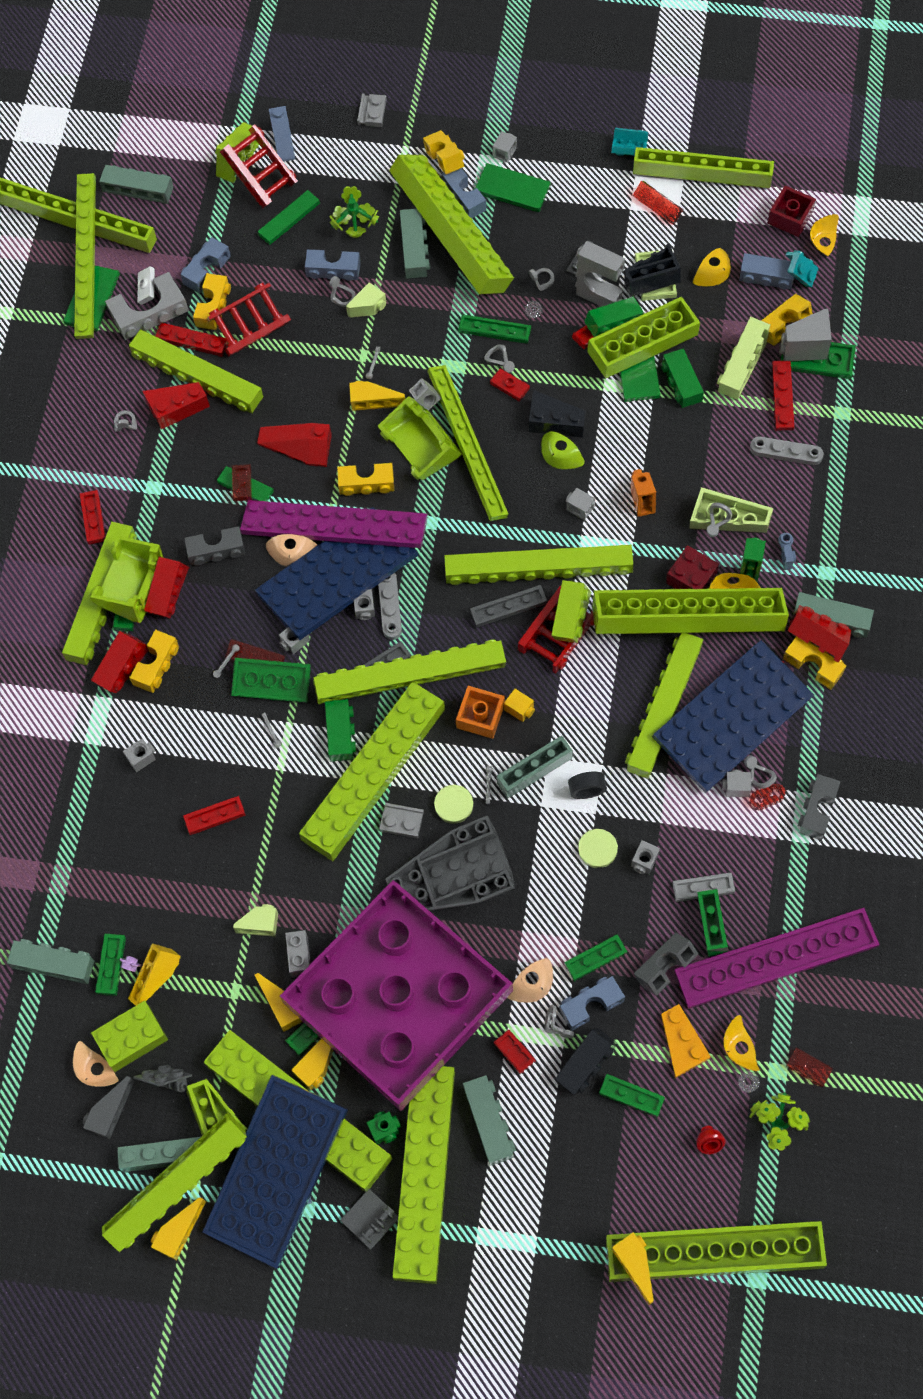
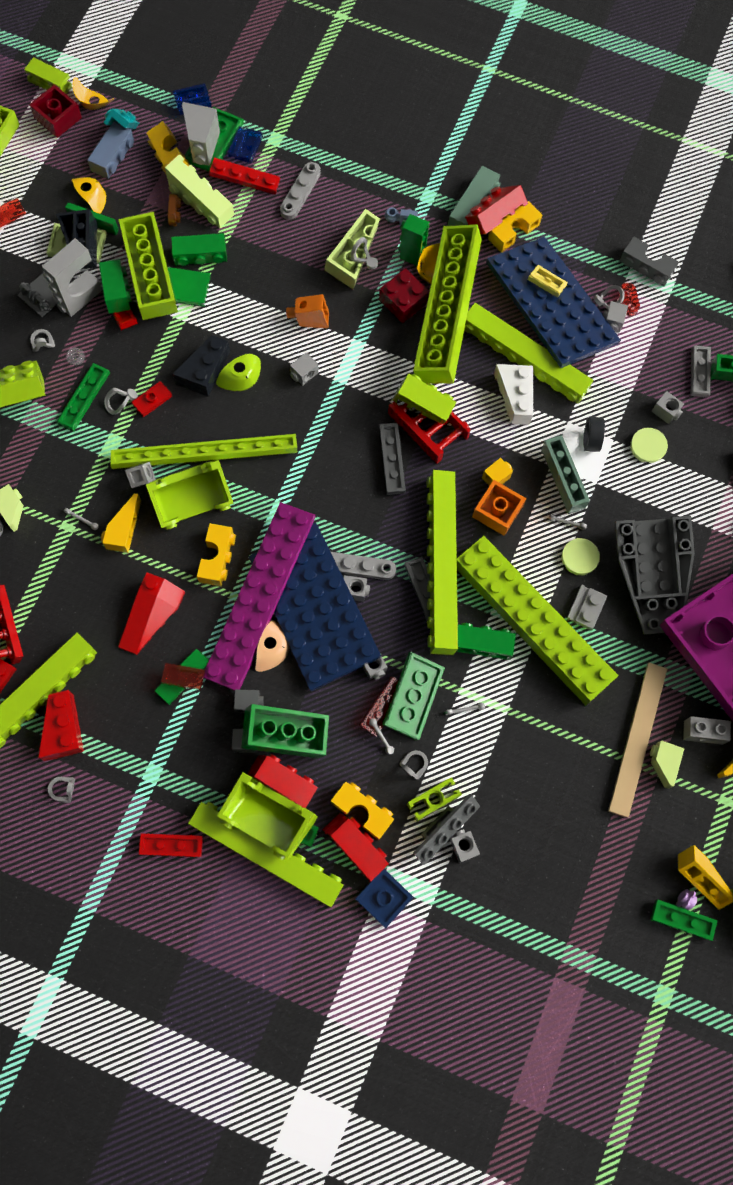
camera: 85 degrees left, 5 degrees up
(51, 962) = (671, 983): sand green brick -> none
(80, 698) = (384, 898): none -> dark blue plate
(149, 731) = (444, 828): none -> dark grey bracket
(176, 712) = (434, 791): none -> lime piece
(197, 687) = (408, 770): none -> light grey piece
(207, 574) = (285, 731): none -> green brick
(214, 815) = (546, 783): red plate -> none
(278, 893) = (637, 740): none -> tan tile
(539, 564) = (356, 422): lime brick -> none
(615, 704) = (517, 391): none -> white wedge
(685, 274) = (103, 222): none -> green tile
(719, 343) = (173, 214): none -> reddish brown plate
(746, 716) = (547, 281): none -> light yellow tile
(821, 386) = (245, 144): none -> clear blue plate
(831, 193) = (47, 75): none -> lime piece
(857, 324) = (194, 95): none -> clear blue plate

